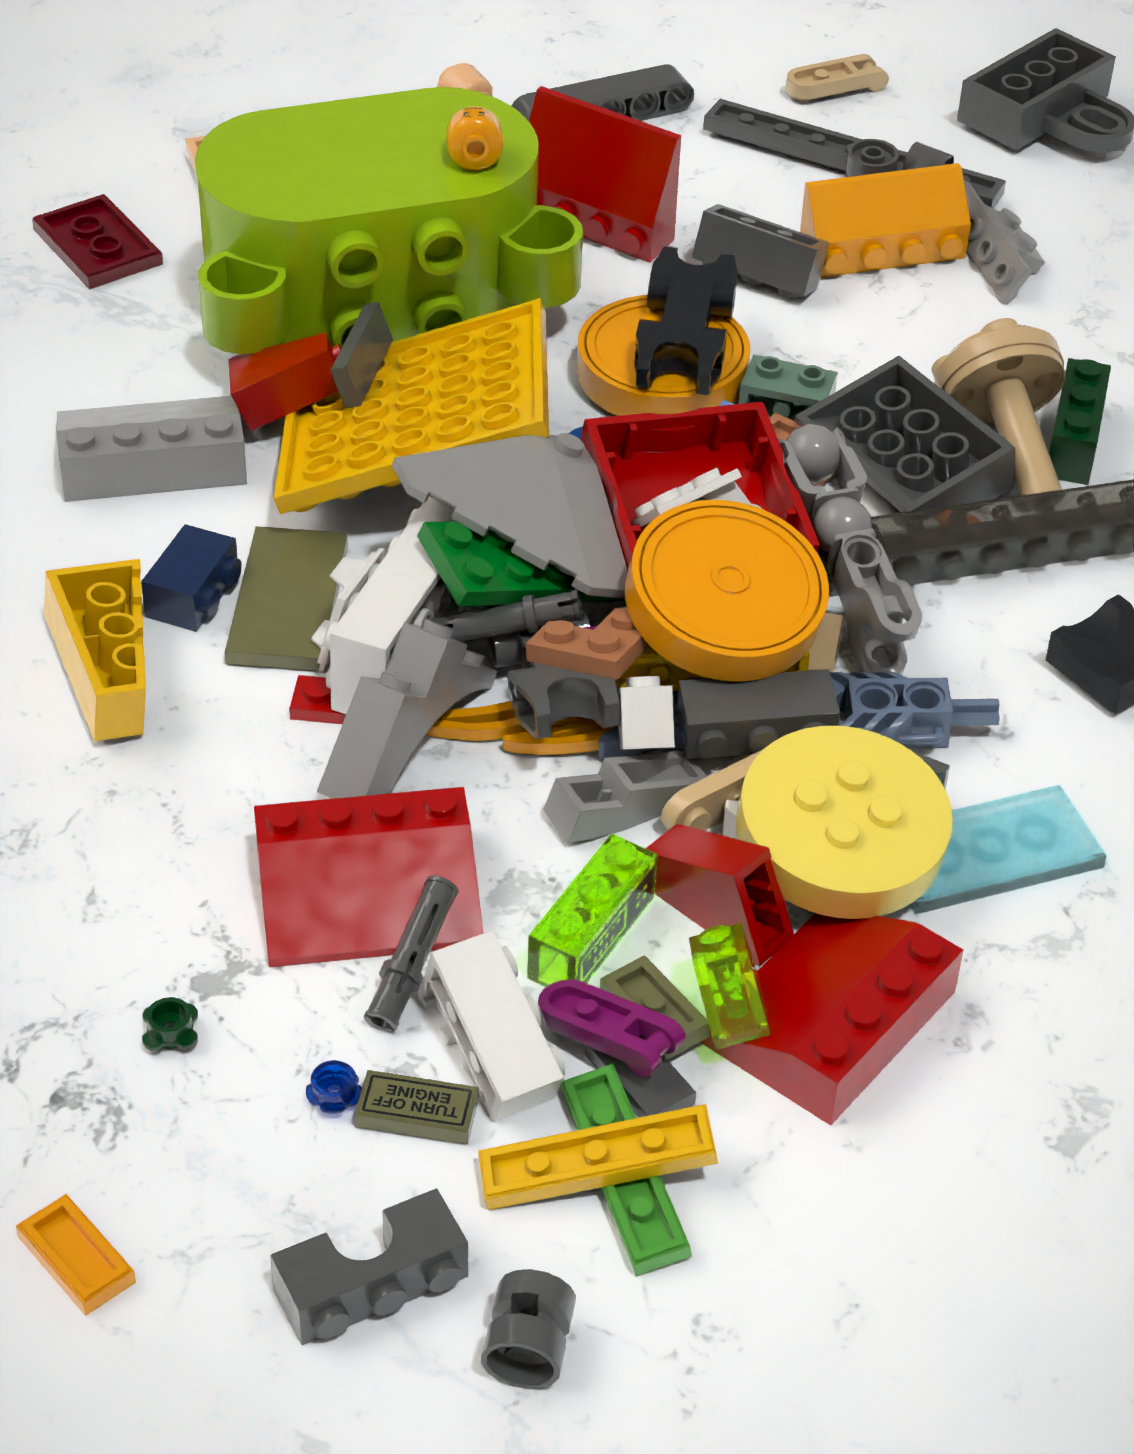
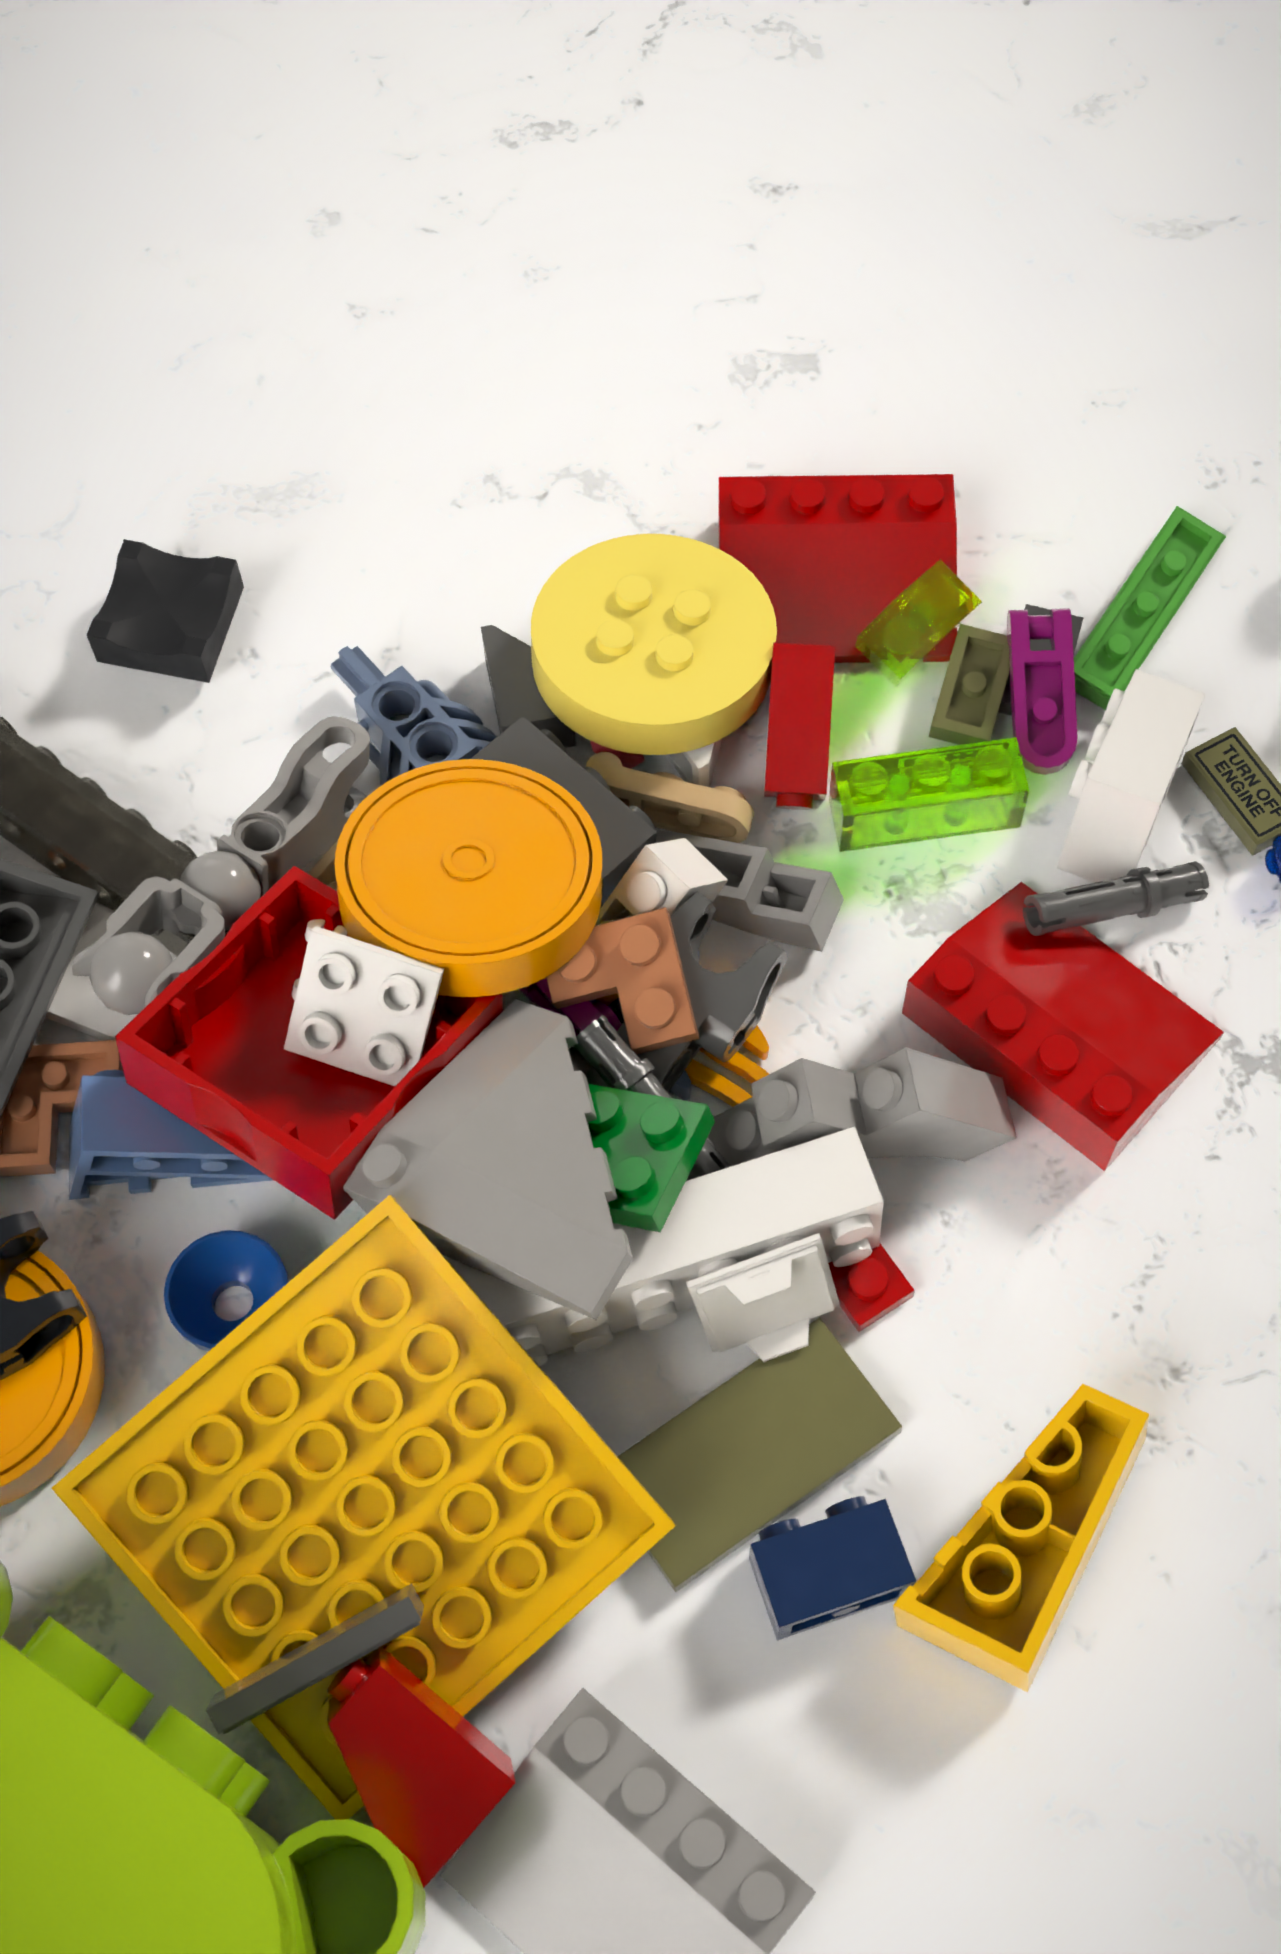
camera: 125 degrees left, 20 degrees up
(597, 1157) = (1168, 614): yellow tile -> none
(1012, 847) = (484, 563): clear light blue tile -> none

